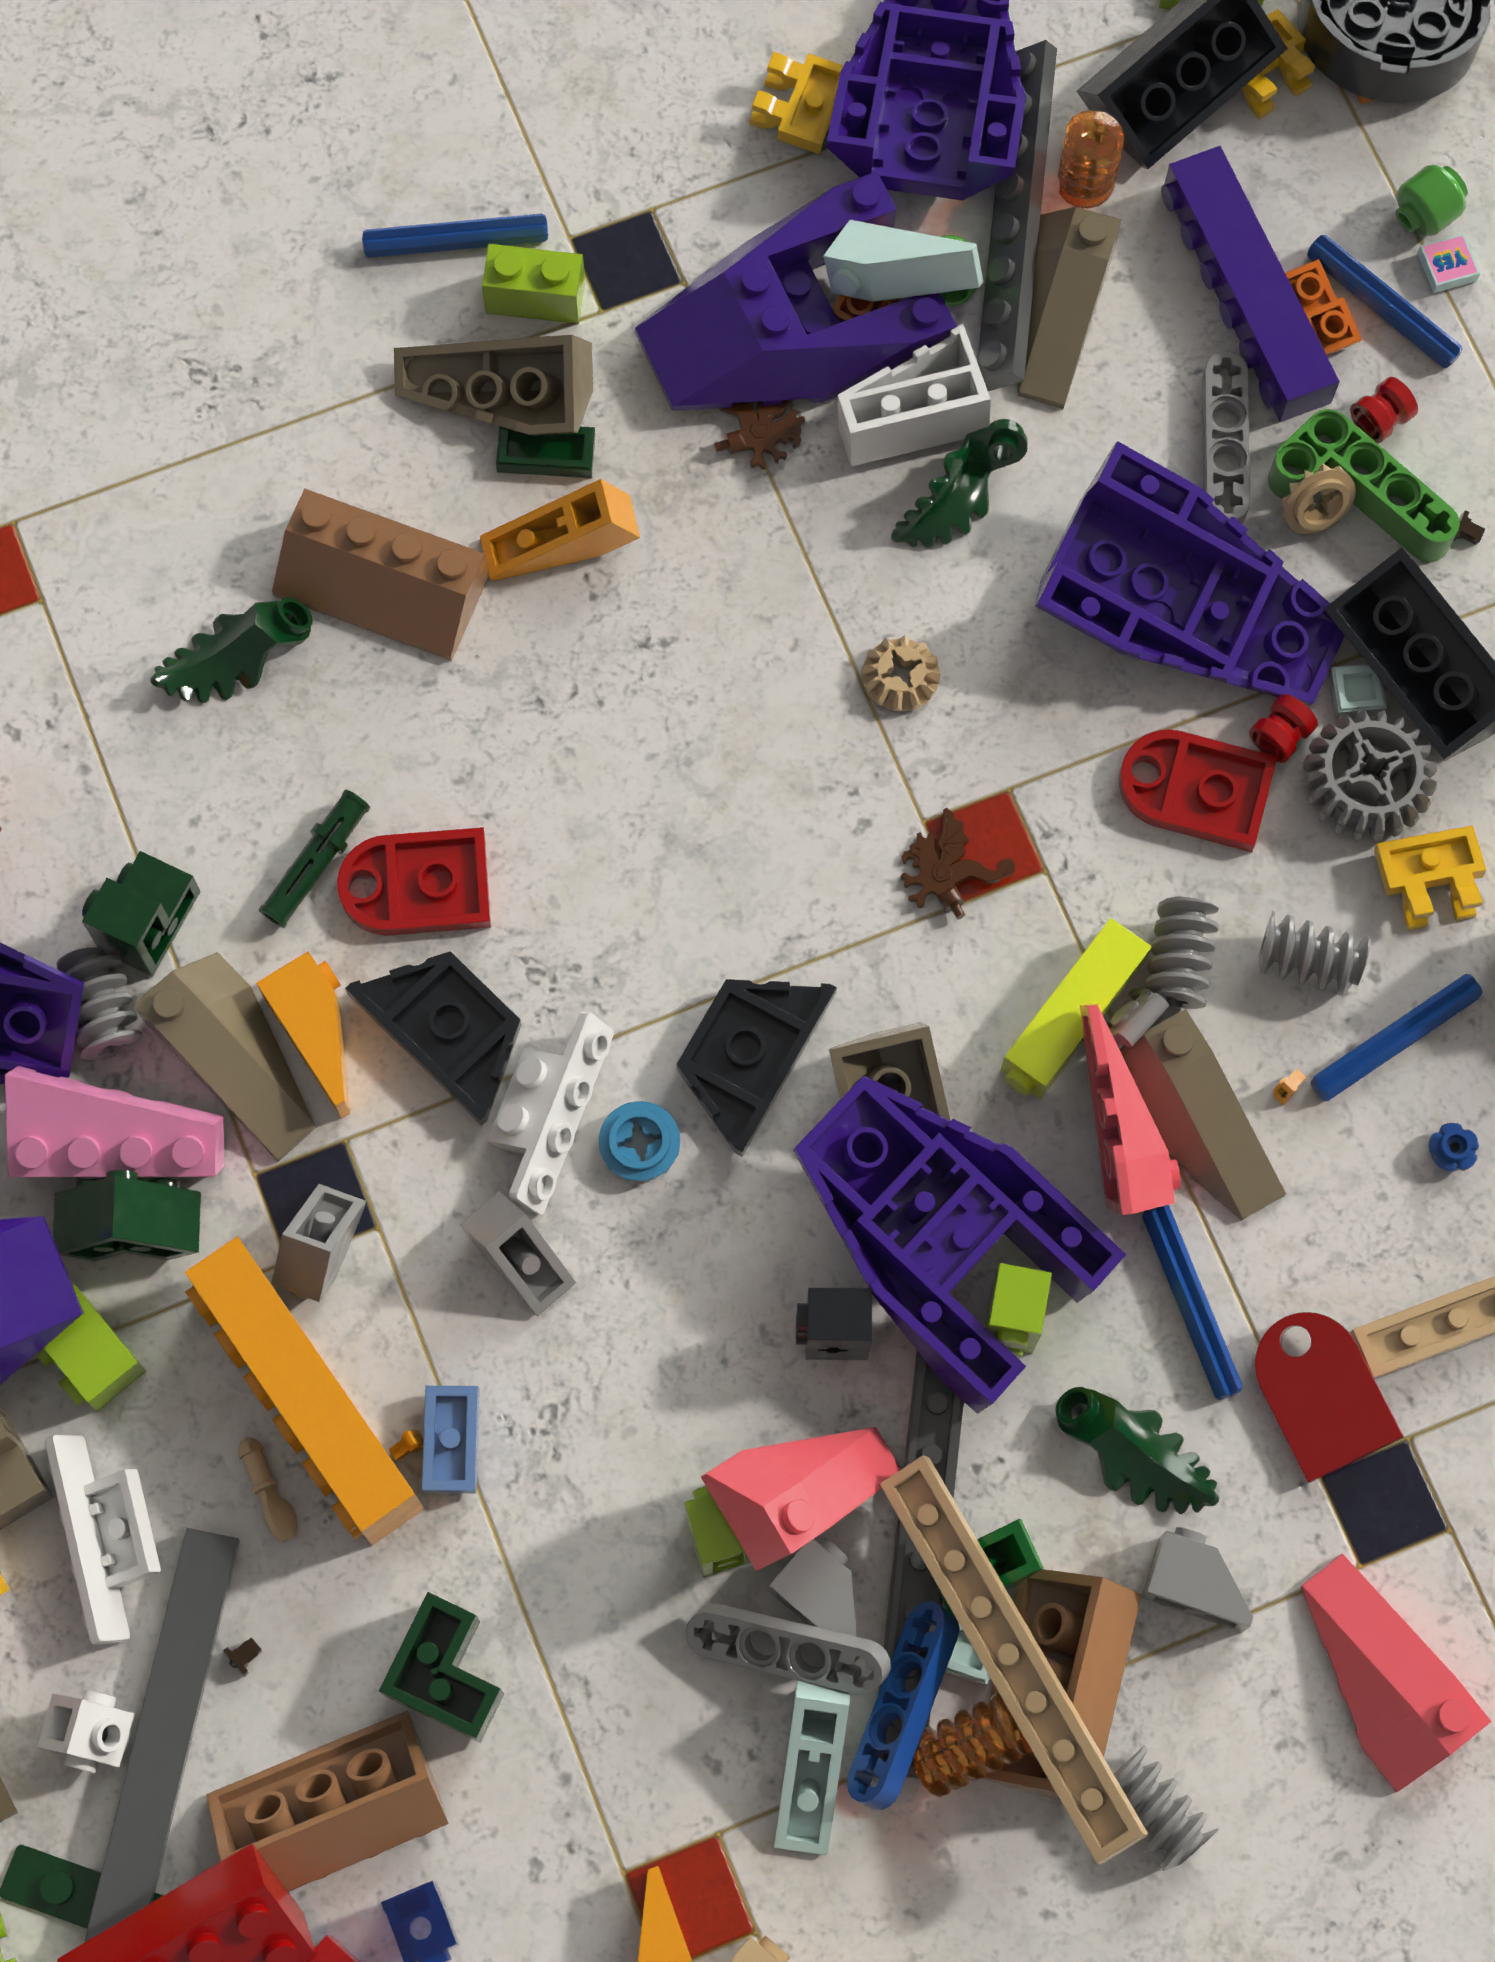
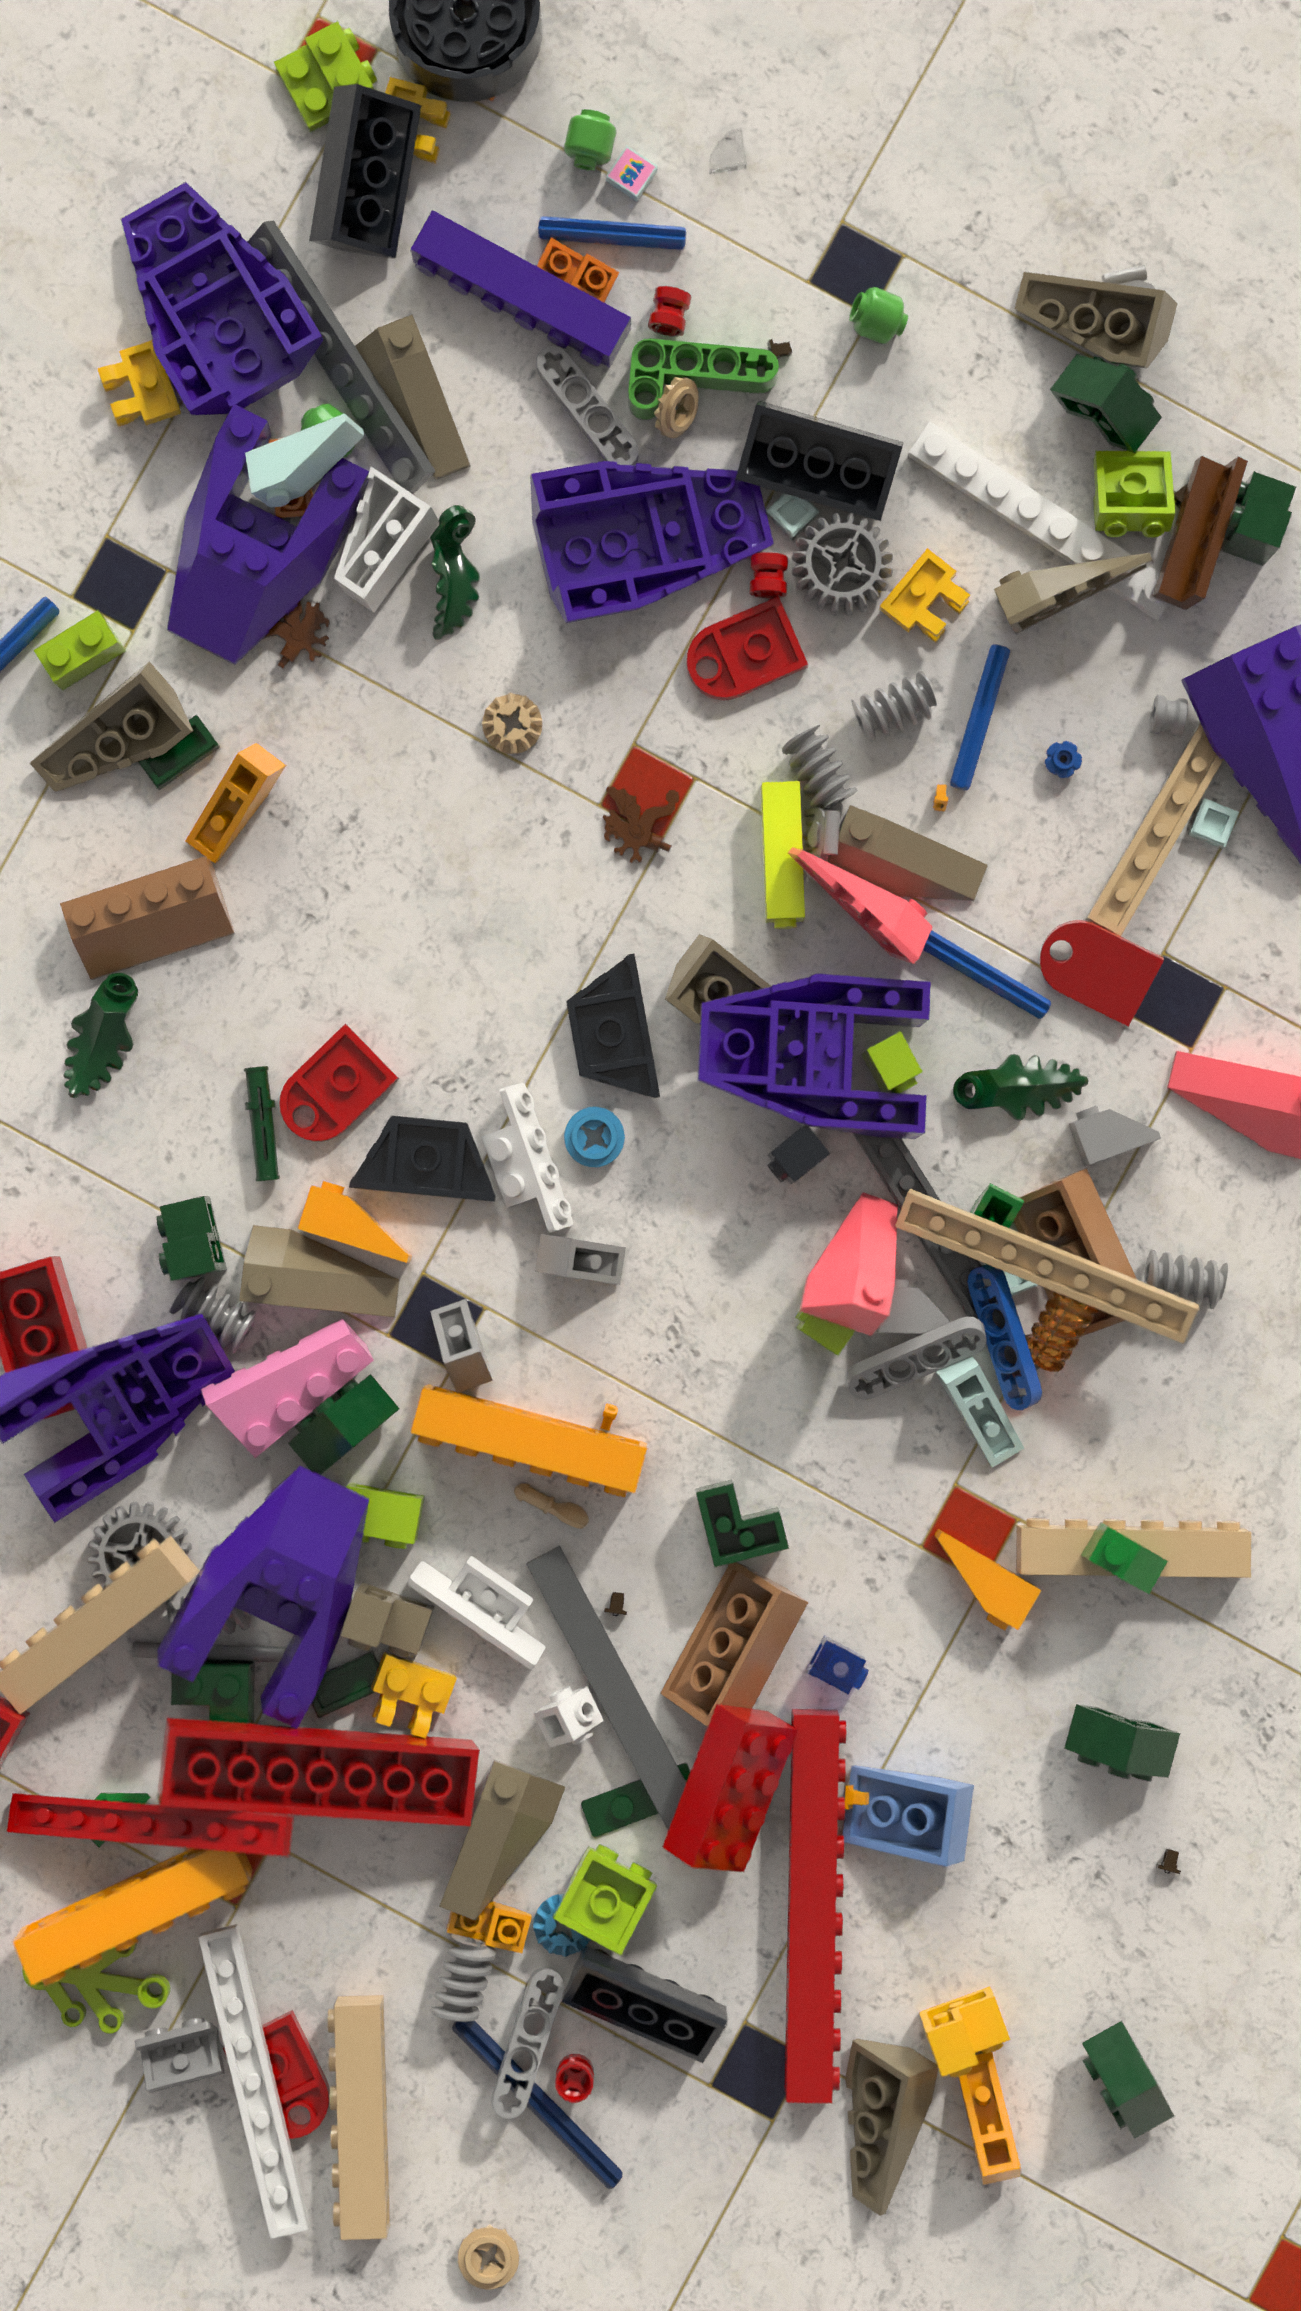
camera: 40 degrees left, 15 degrees up
(450, 1439) = (631, 1394): medium blue plate -> none
(1090, 158) = (358, 285): clear orange piece -> none

